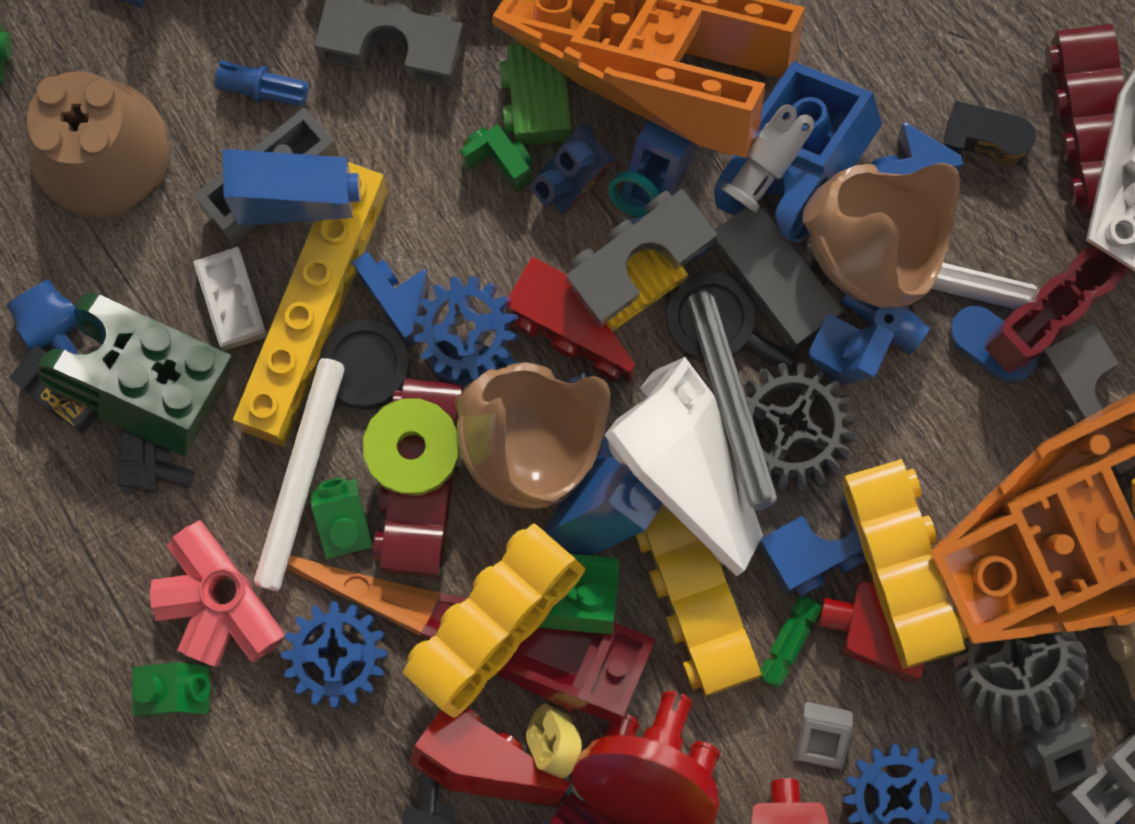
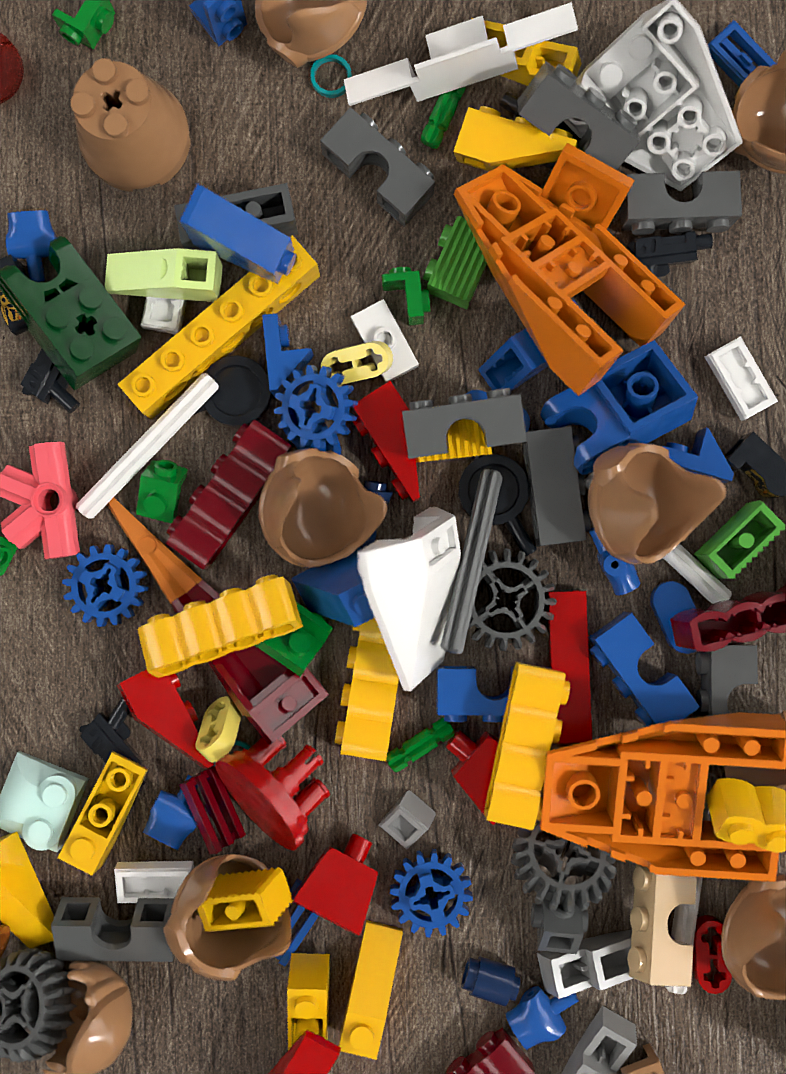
camera: 20 degrees right, 10 degrees up
(221, 274) = (165, 274): none -> yellowish green slope
(260, 84) = (270, 148): blue axle -> none
(405, 419) = (208, 466): lime tile -> none
(475, 251) = (354, 354): none -> light yellow beam
(500, 222) = (378, 324): none -> white plate
(572, 170) = (453, 332): dark blue hips -> none
(635, 178) = (493, 362): teal piece -> none
(769, 156) = (596, 404): light grey piece -> none
(848, 352) = (574, 572): blue slope -> none
(891, 438) = (571, 655): none -> red tile
(911, 54) = (741, 379): none -> white plate
(949, 413) = (620, 647): none -> blue arch
(1009, 223) = (740, 540): none -> bright green brick

